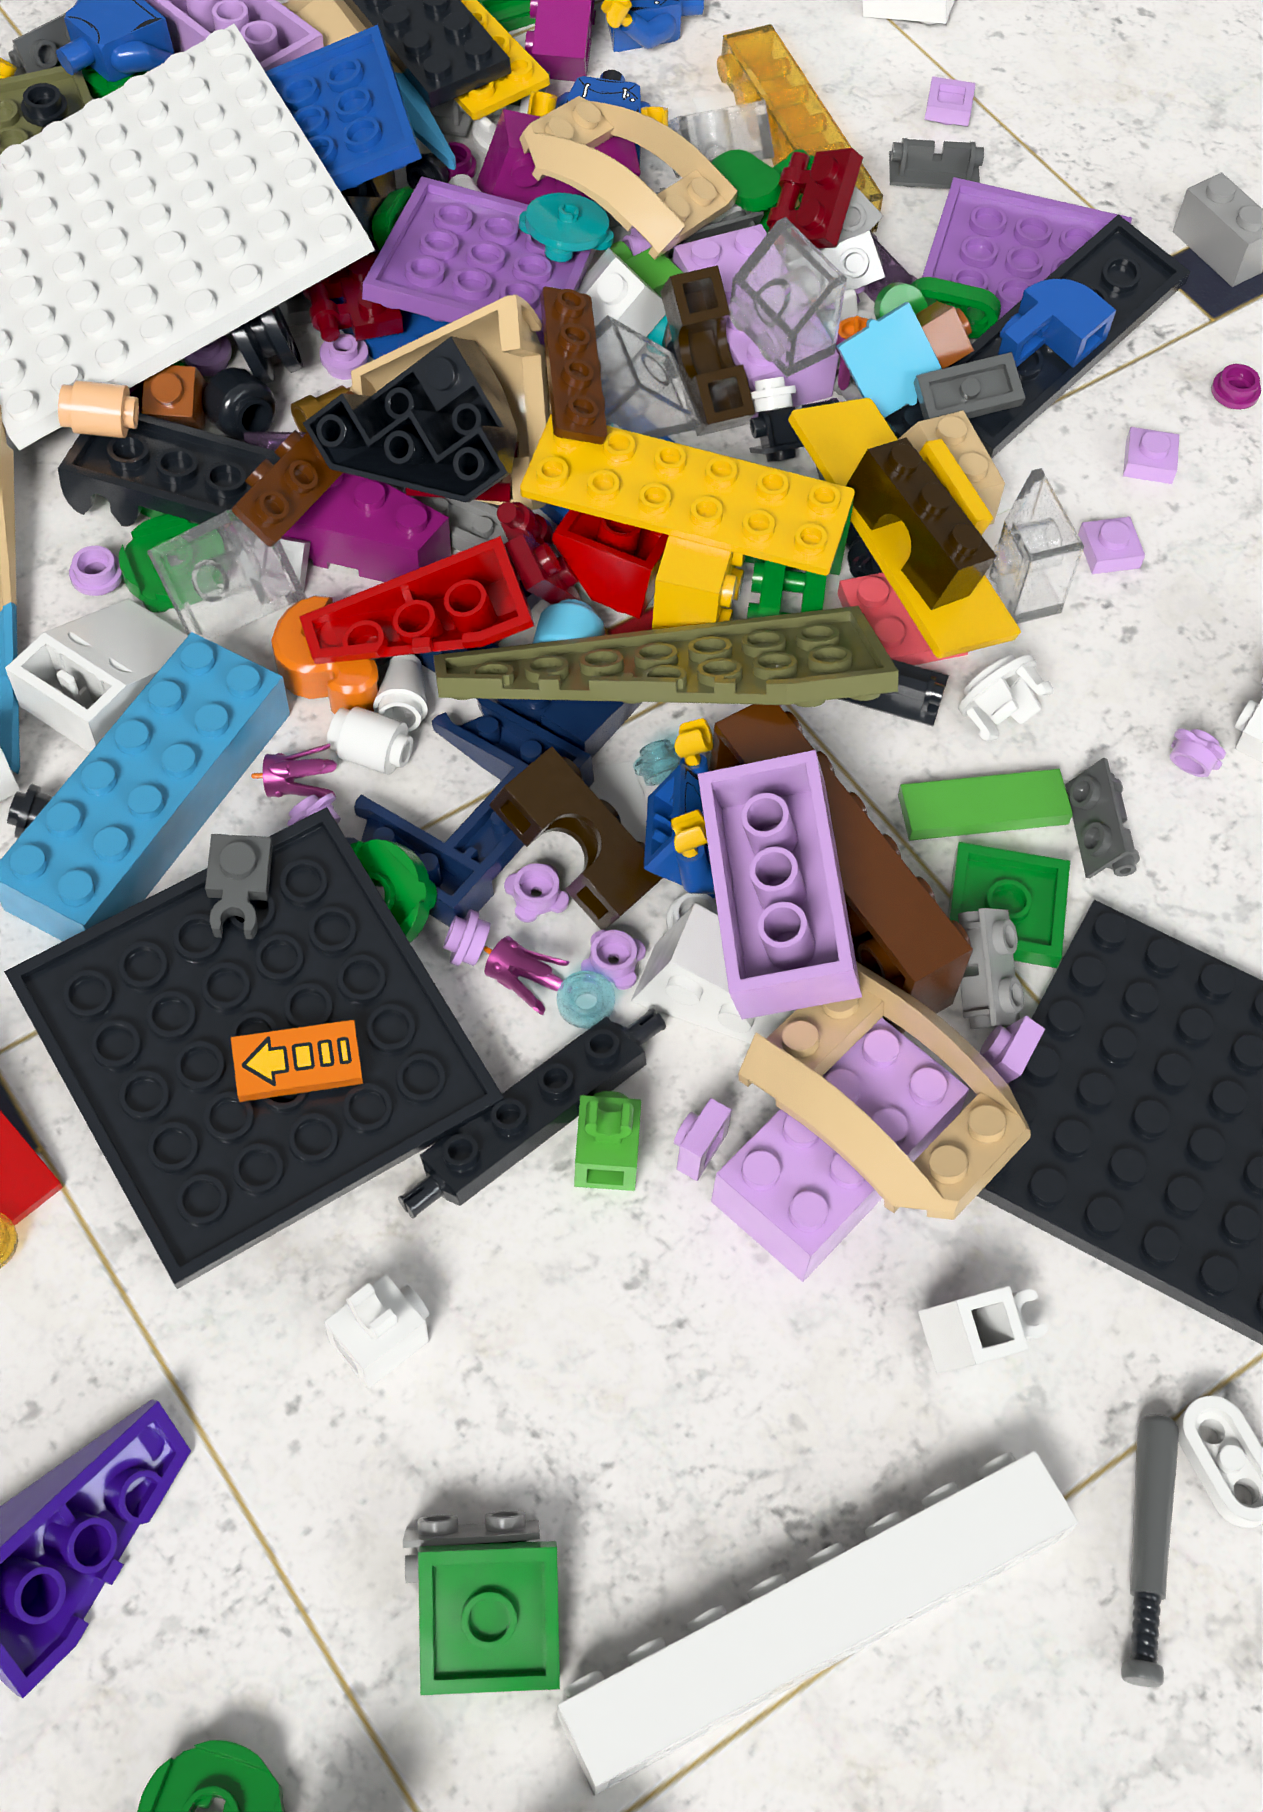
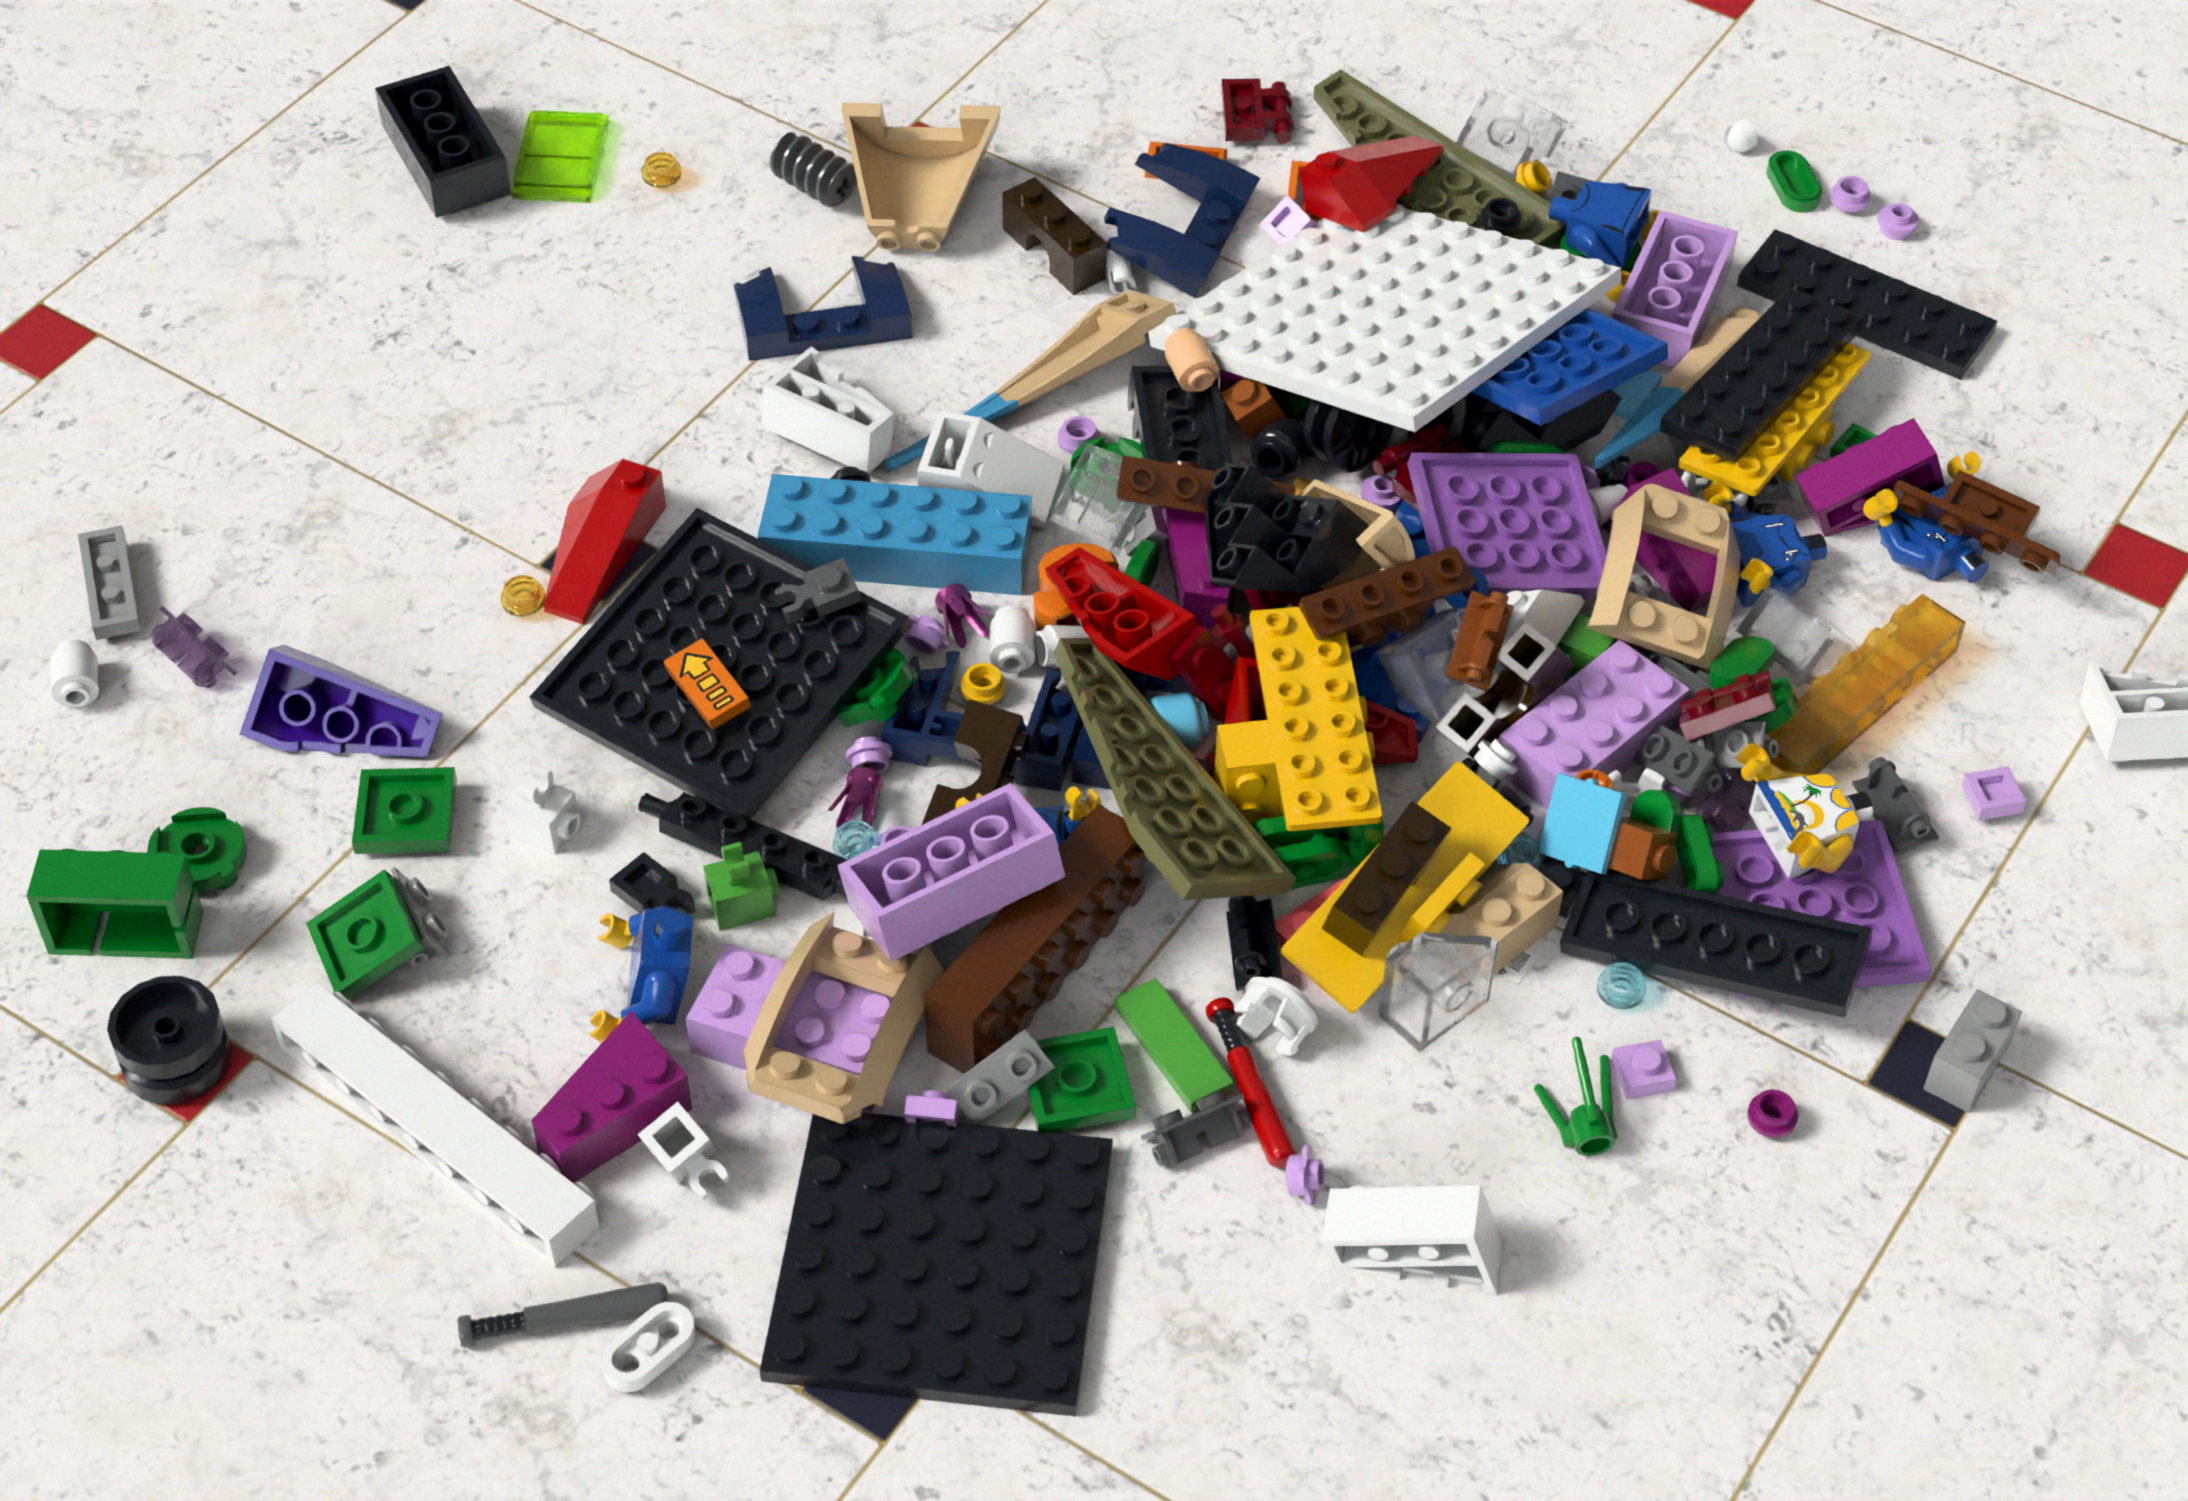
camera: 70 degrees right, 10 degrees down
(281, 1504) = (404, 810): none -> green plate
(335, 577) = (1144, 562): none -> green tile
(414, 781) = (983, 684): none -> yellow plate
(532, 878) = (928, 777): lavender plate -> none
(552, 1245) = (649, 885): none -> black plate
(566, 225) = (1577, 557): teal piece -> none
(636, 310) = (1480, 639): none -> dark orange hinge
(695, 1264) = (657, 965): none -> blue torso
(701, 1137) = (768, 939): lavender plate -> none
(788, 300) = (1563, 714): clear slope -> none
(874, 1387) = (610, 1100): none -> magenta wedge
(956, 215) = (1802, 815): none -> torso
(972, 387) = (1594, 890): dark grey plate -> none
(1055, 429) = (1623, 976): none -> clear light blue plate
(1062, 316) = (1704, 916): blue brick -> none
(1111, 545) = (1513, 1064): lavender plate -> none
(1123, 761) = (1258, 1101): none -> red piece
(1212, 512) = (1590, 1128): none -> green plant

